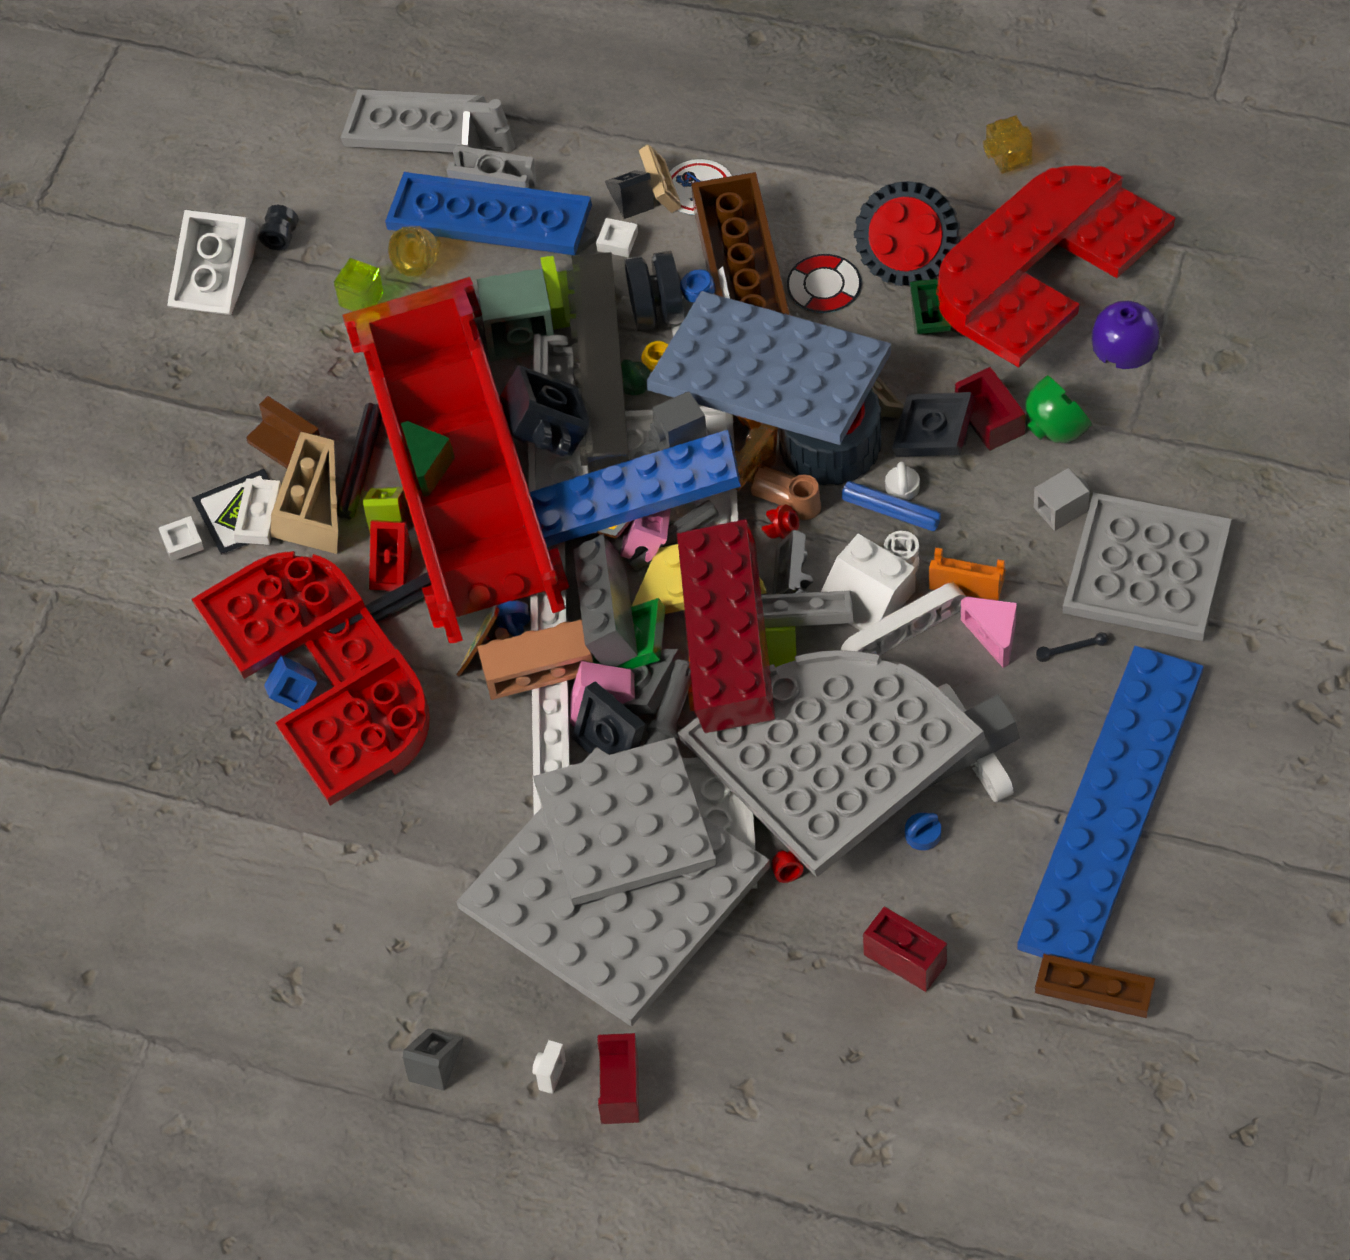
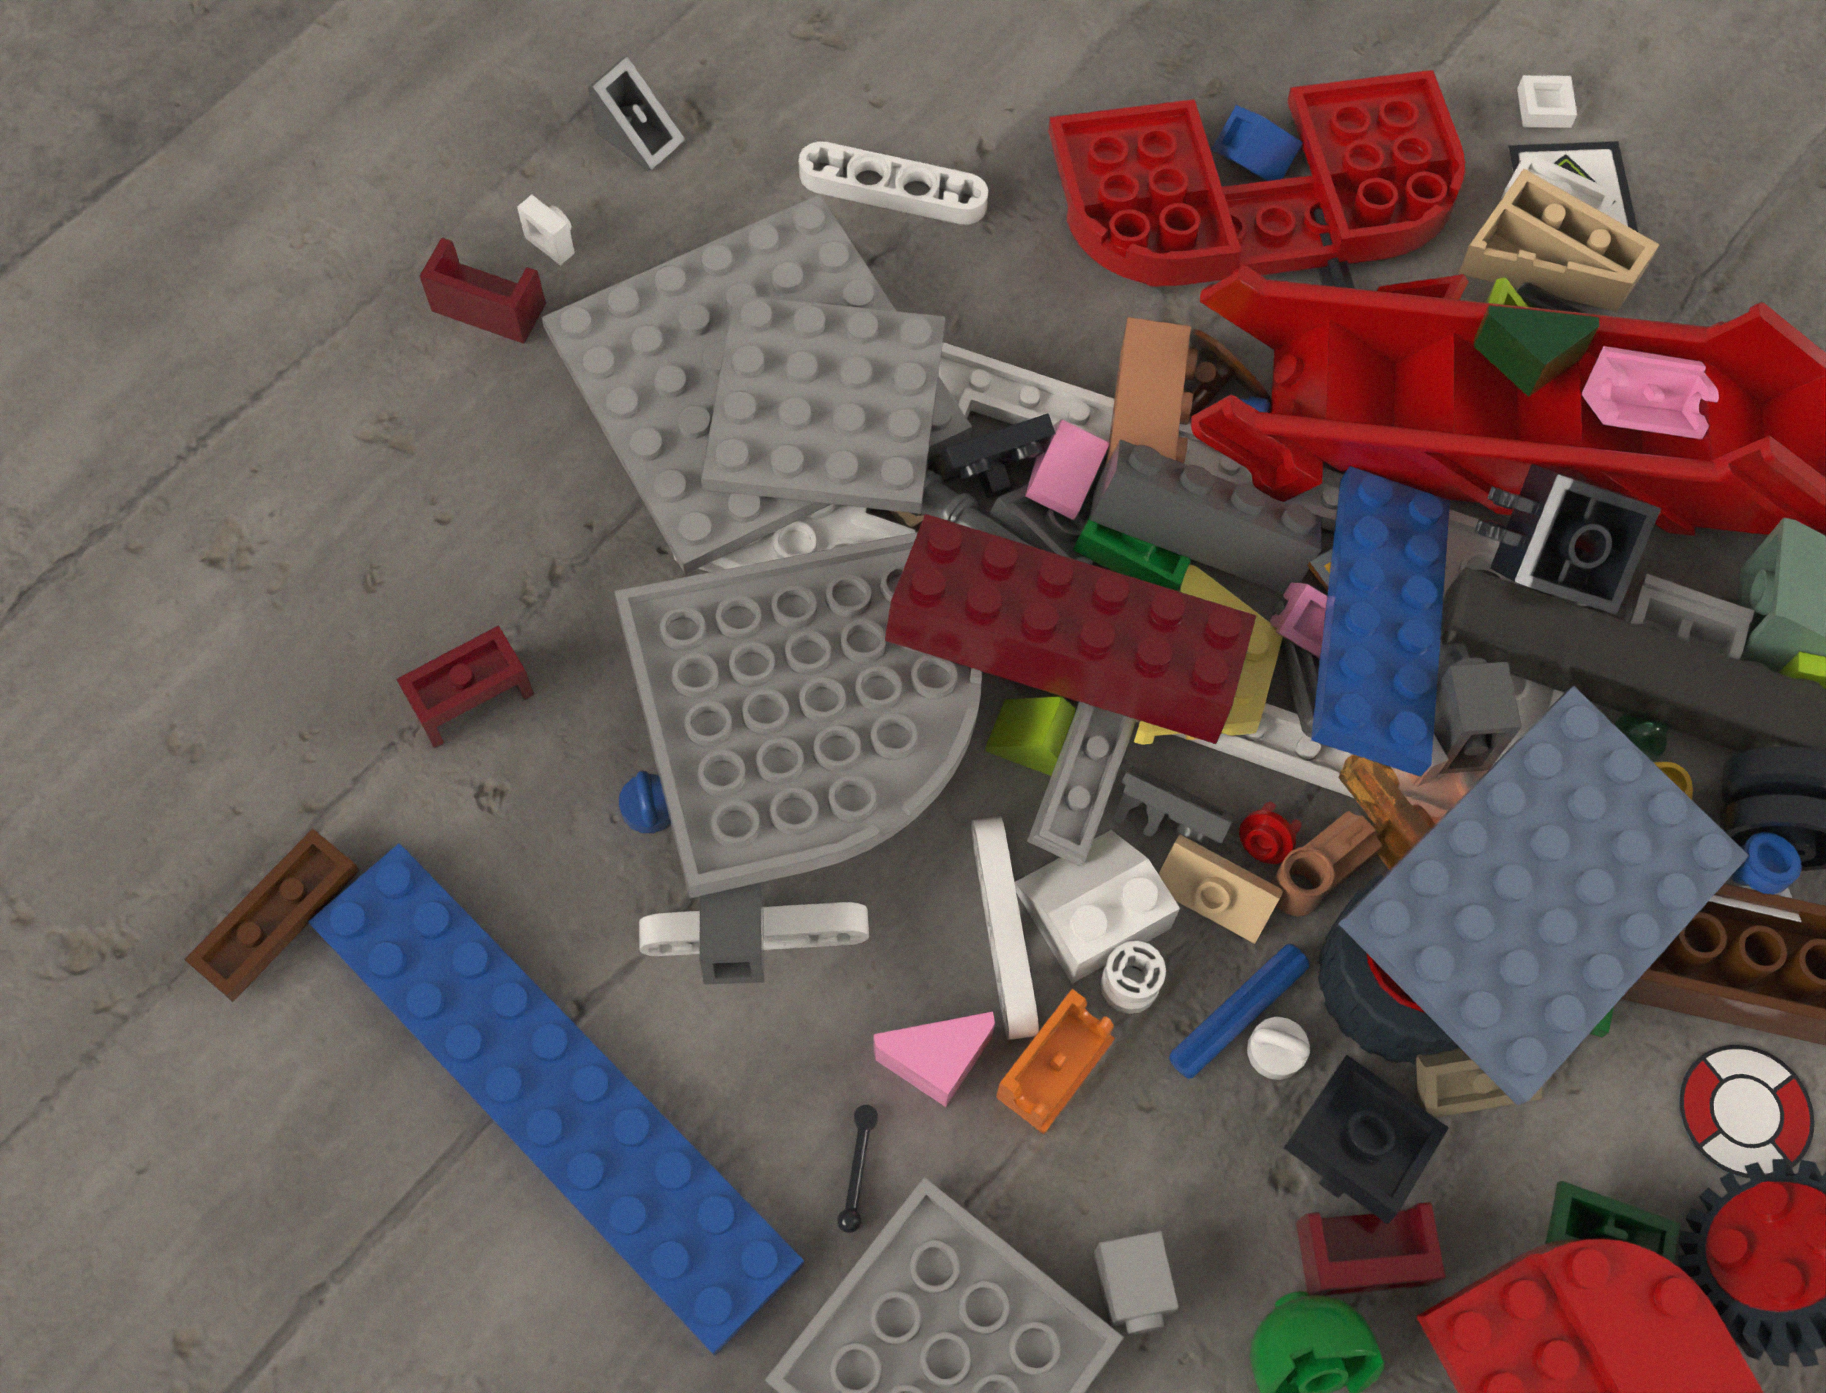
camera: 105 degrees right, 10 degrees up
(279, 431) = (1687, 266): reddish brown panel -> none
(411, 884) = (895, 175): none -> white beam
(433, 395) = (1649, 392): none -> bright pink hinge
(828, 532) = (1219, 888): none -> tan plate

